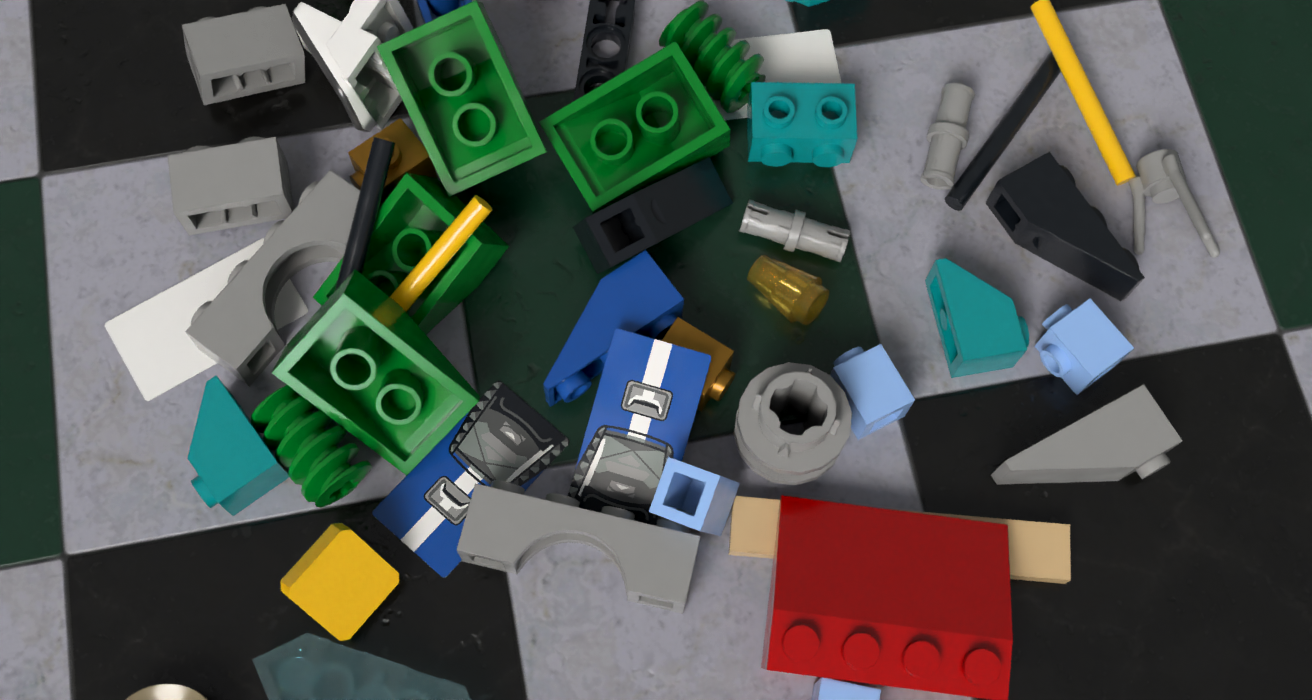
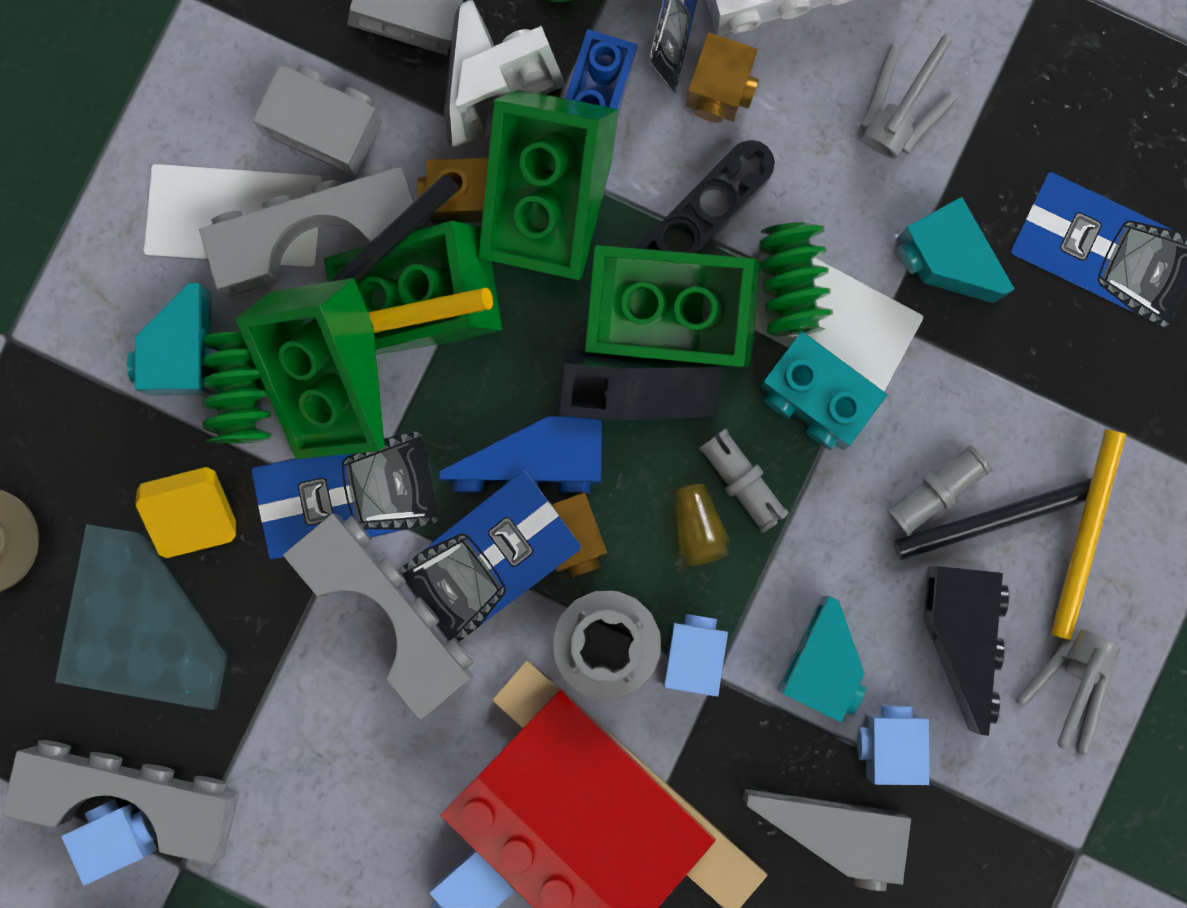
camera: 45 degrees right, 15 degrees up
(694, 497) = (490, 644): light blue brick -> none

